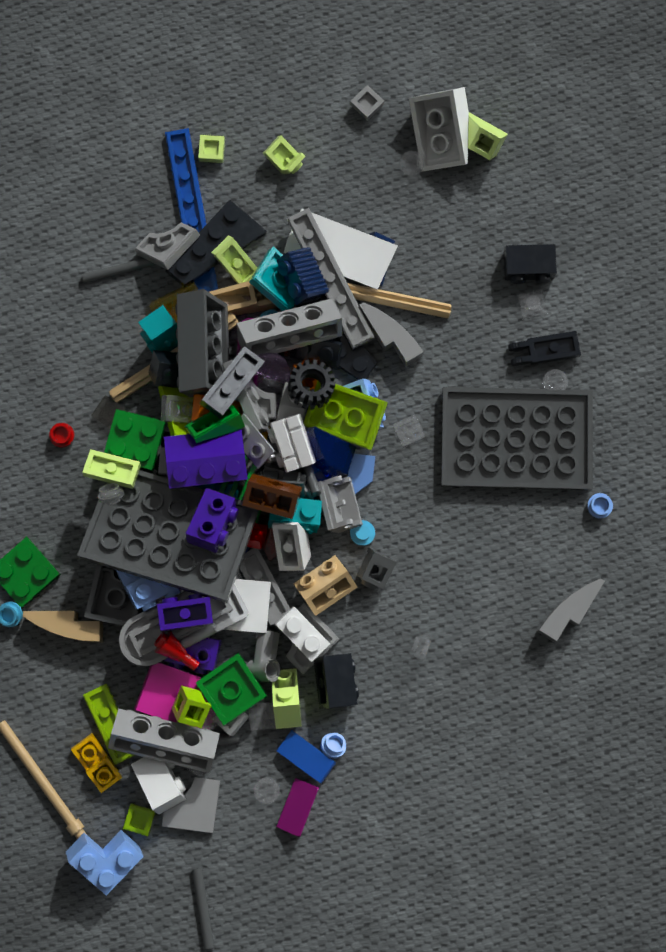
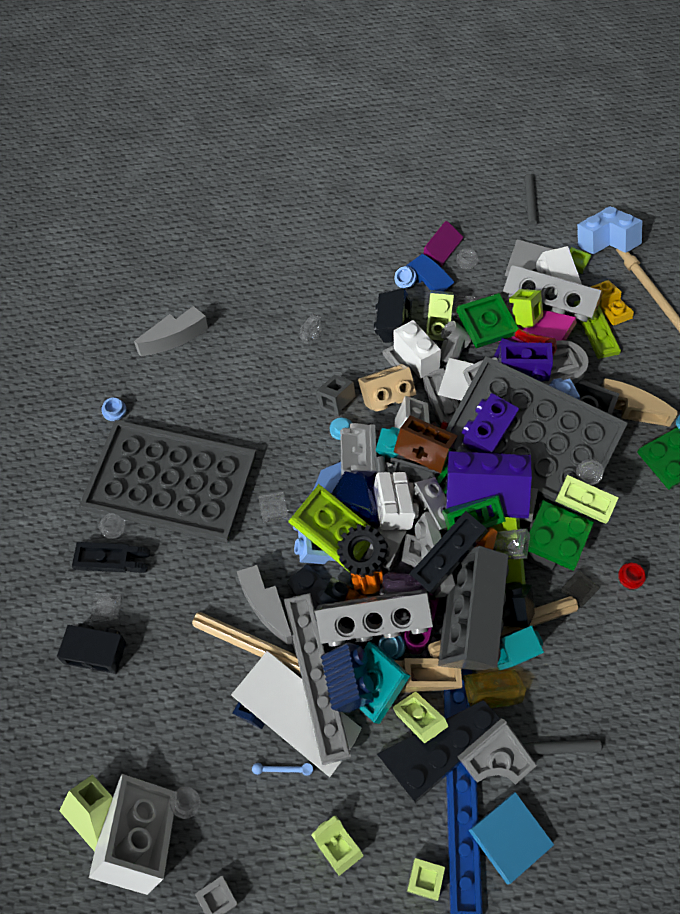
camera: 170 degrees left, 20 degrees down
(149, 191) = (511, 838): none -> dark azure tile
(321, 210) = (306, 769): none -> light blue hinge

